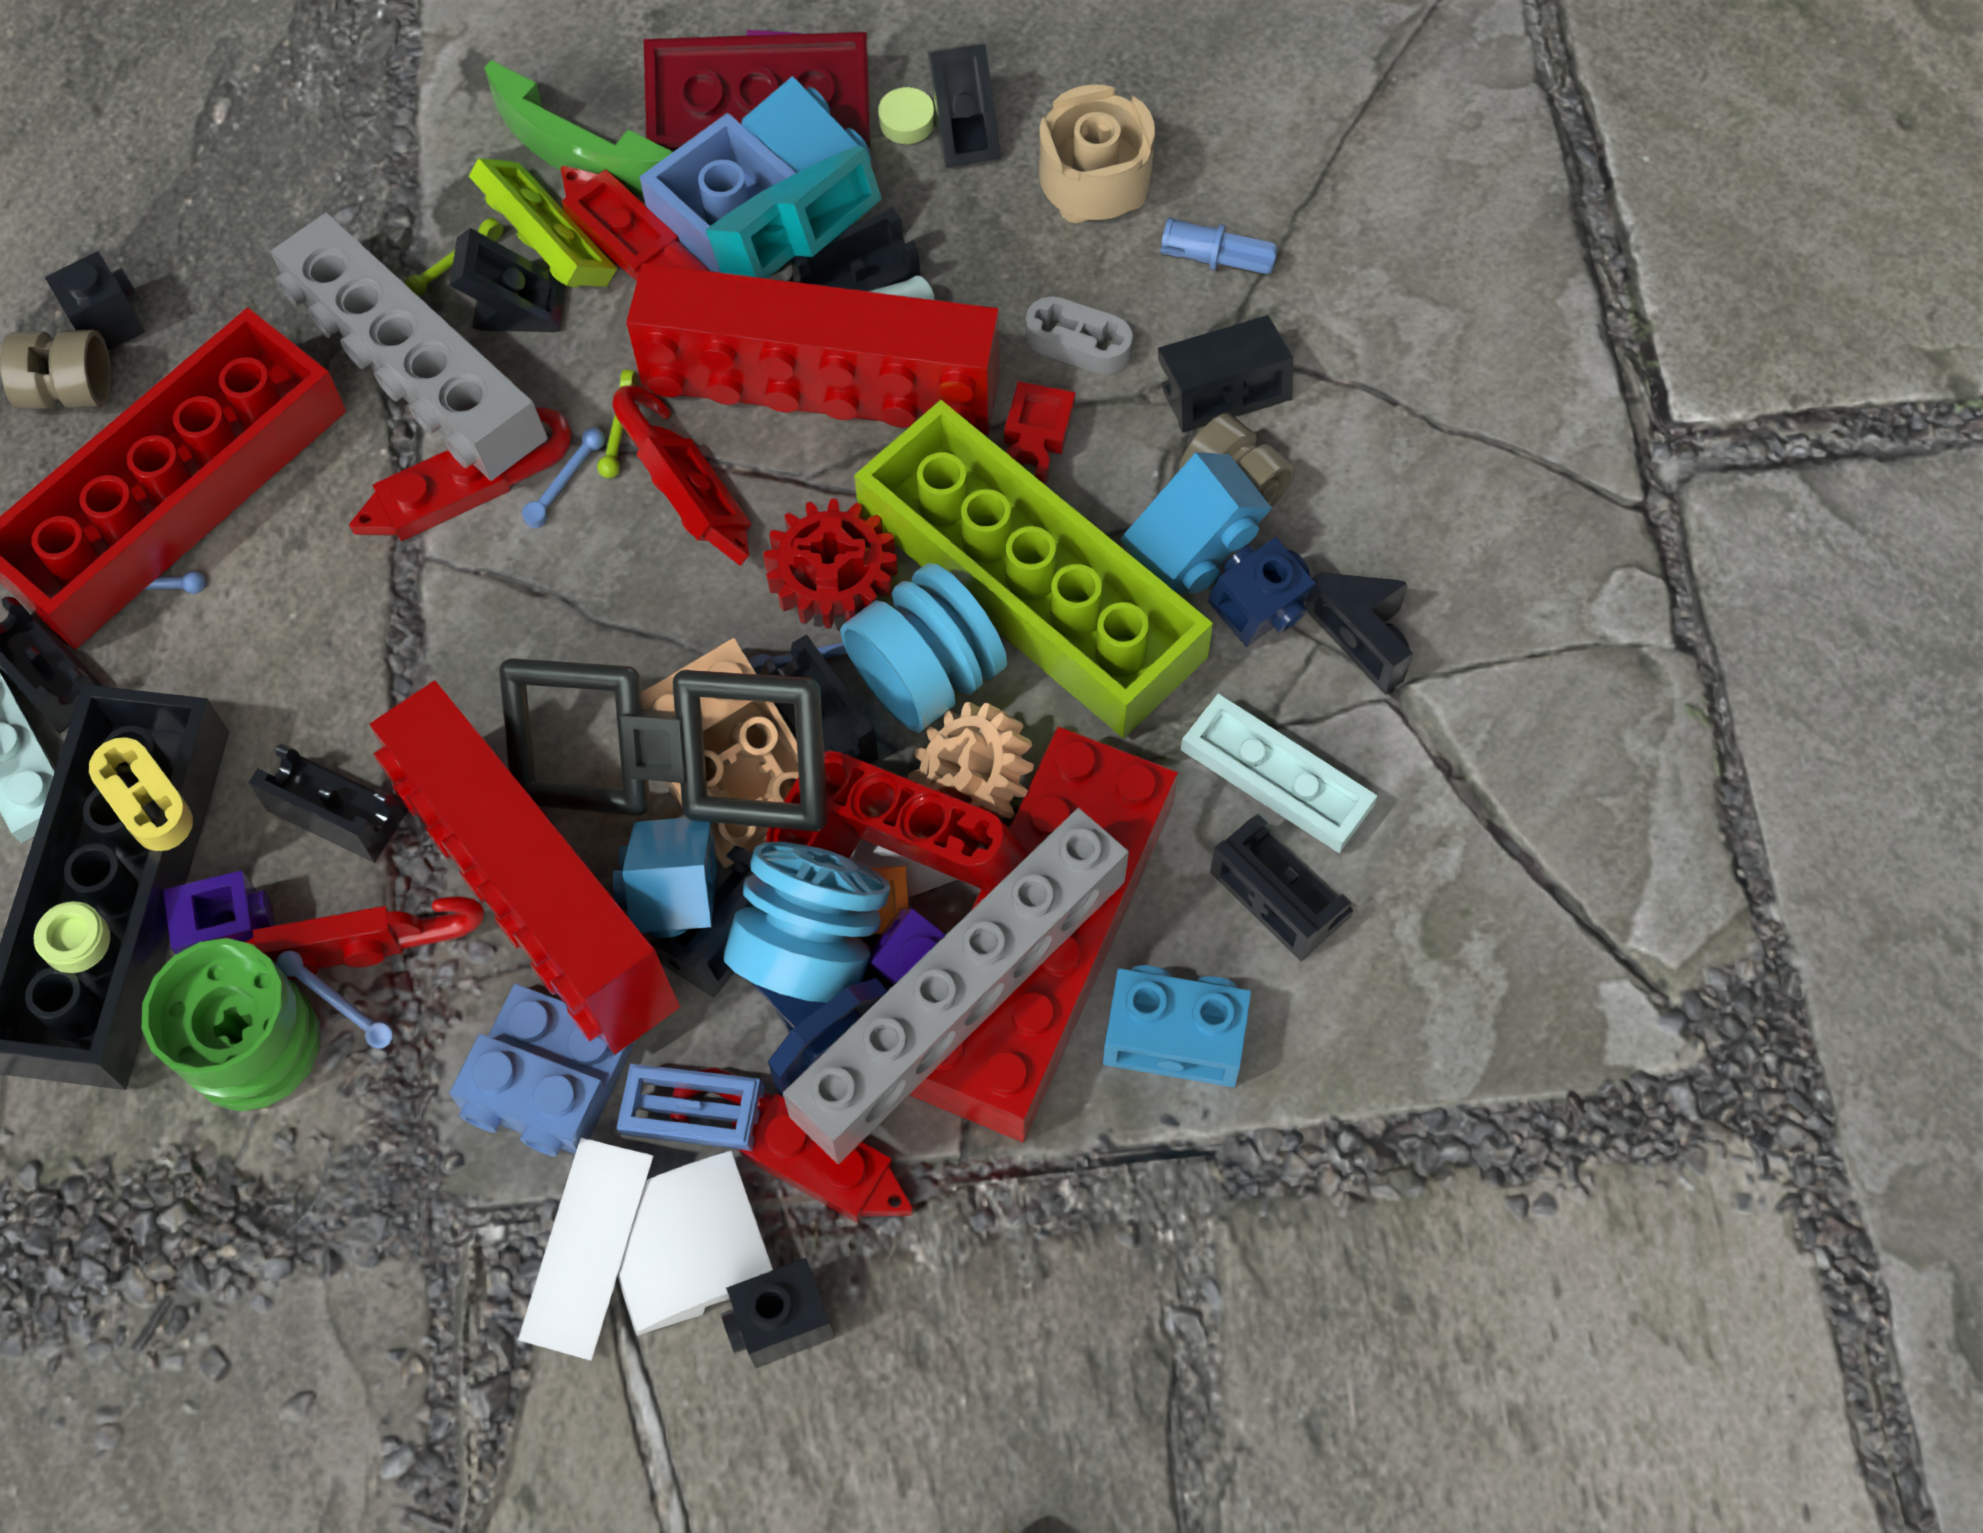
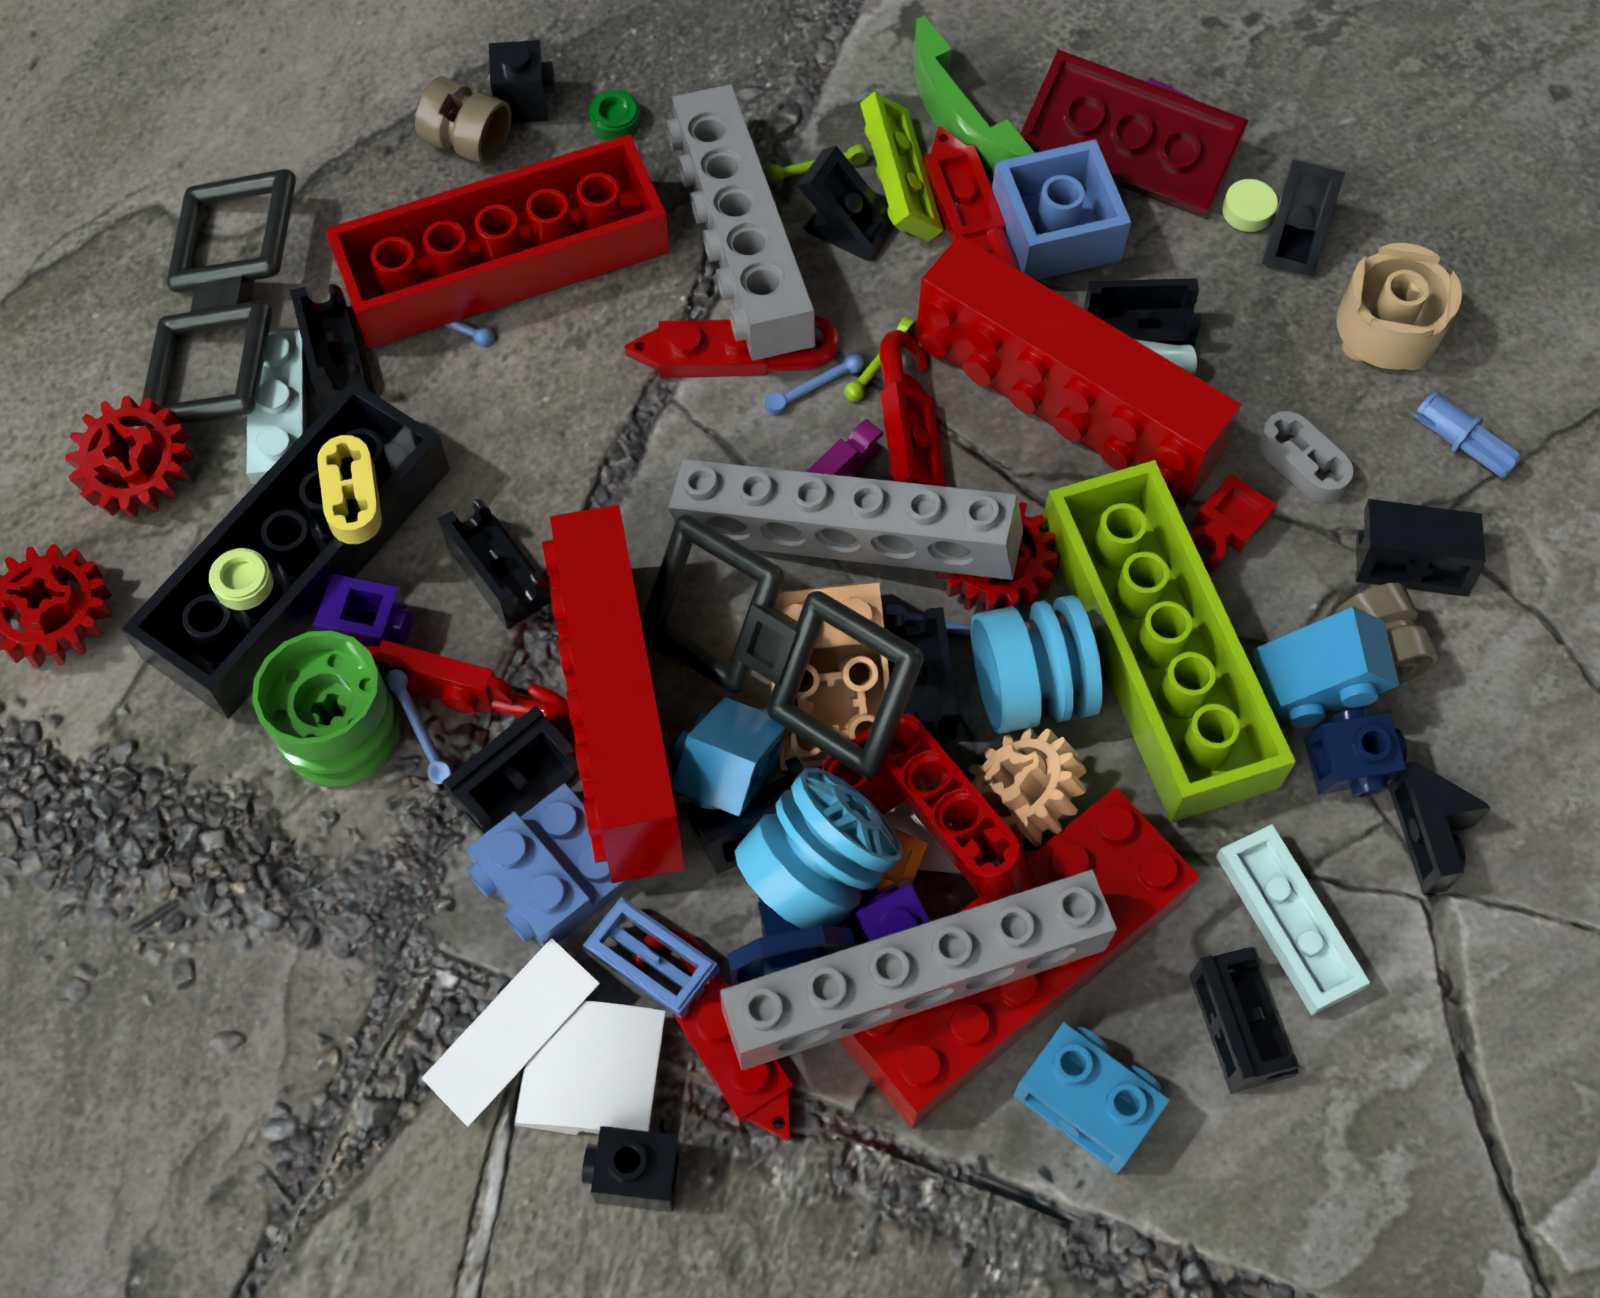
camera: 25 degrees right, 0 degrees up
(214, 297) = (614, 115): none -> green tile
(456, 998) = (512, 772): none -> black hinge
(631, 556) = (848, 456): none -> magenta plate
(673, 587) = (854, 518): none -> light grey brick
(795, 215) = (1109, 250): teal slope -> none
(799, 127) = (1154, 196): dark azure brick -> none

